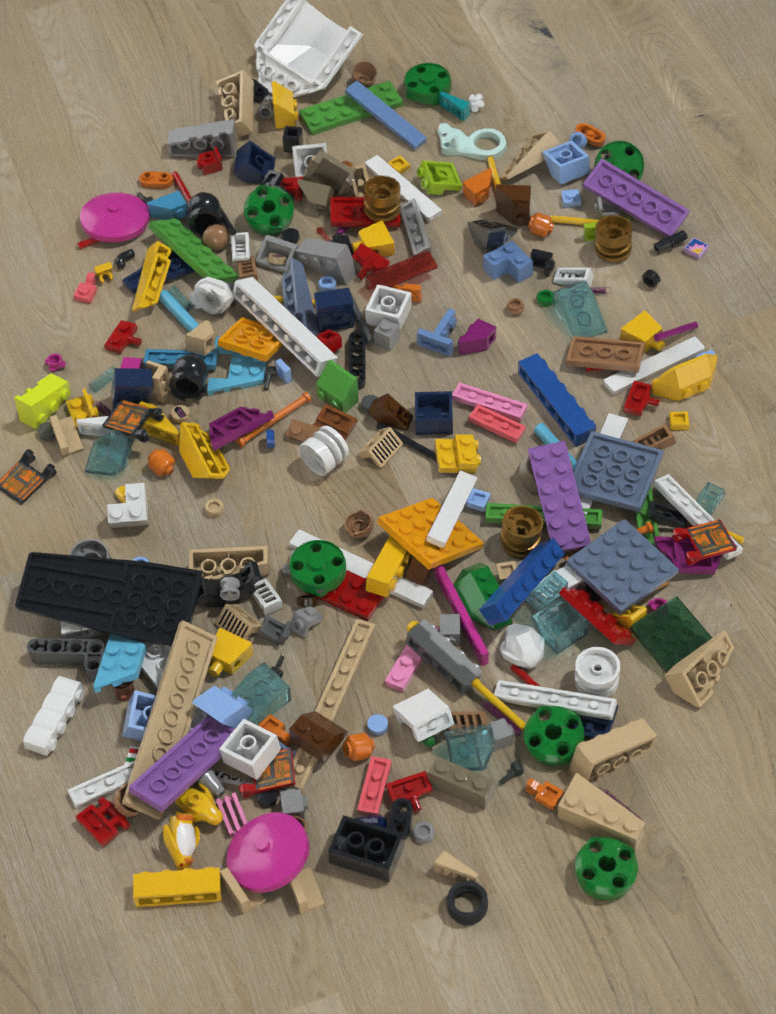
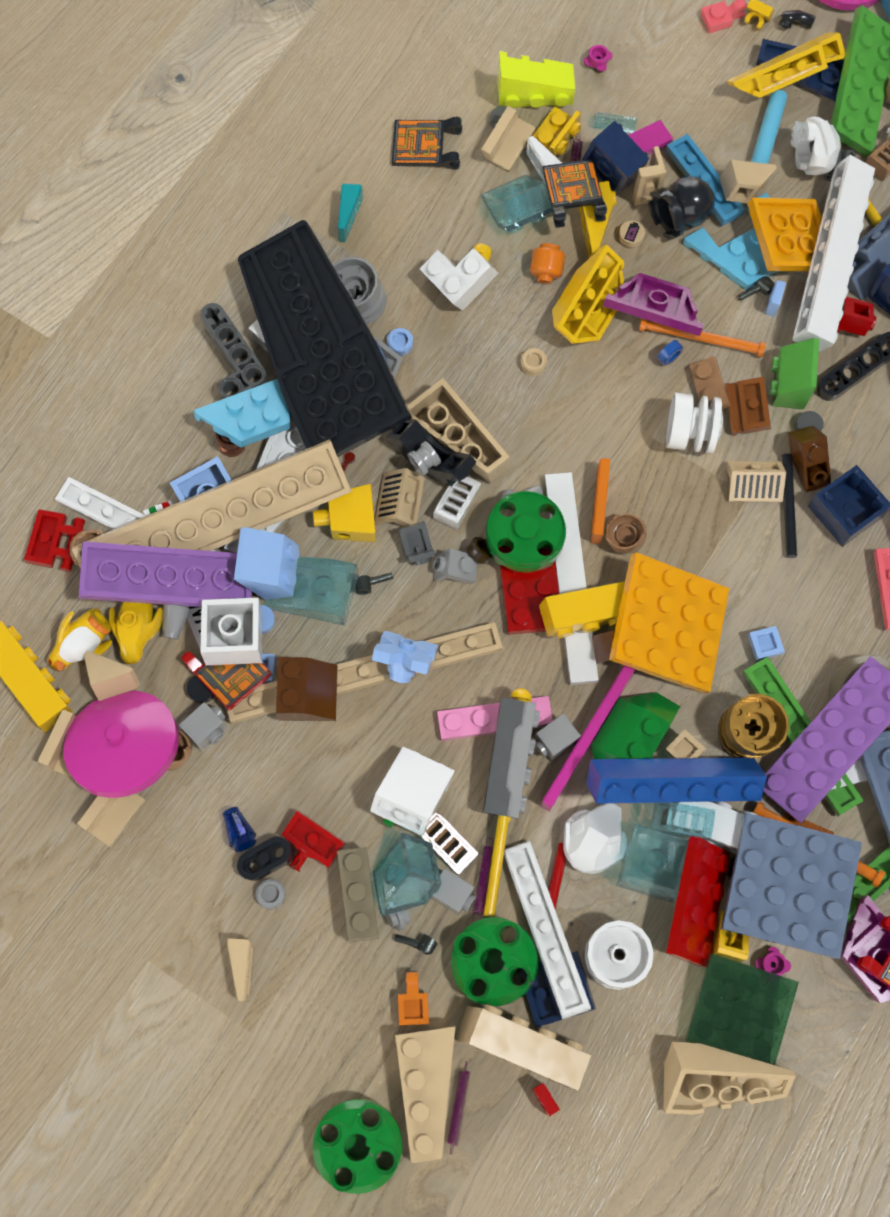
camera: 50 degrees right, 20 degrees up
(29, 538) = (350, 203): none -> teal slope
(53, 715) = (144, 395): white brick -> none
(122, 337) = (687, 98): red plate -> none
(183, 301) = (789, 117): clear light blue piece -> none
(219, 835) = (109, 677): none -> tan slope
(227, 800) = (159, 643): bright pink tile -> none
(277, 727) = (287, 633): orange plate -> none
(329, 525) = (600, 499): none -> orange tile
(342, 669) = (404, 656): none -> light blue plant
(358, 746) = (327, 744): orange head -> none
(366, 848) = (197, 847): black brick -> none
(374, 786) = (289, 798): coral plate -> none
(377, 724) = (375, 744): light blue tile -> none
(451, 509) = (720, 624): white tile -> none
(457, 454) = (812, 574): yellow plate -> none
(470, 917) = (186, 1004): black tyre -> none
(491, 771) = (398, 919): none -> light grey plate
(650, 759) = (545, 1099): none -> red tile

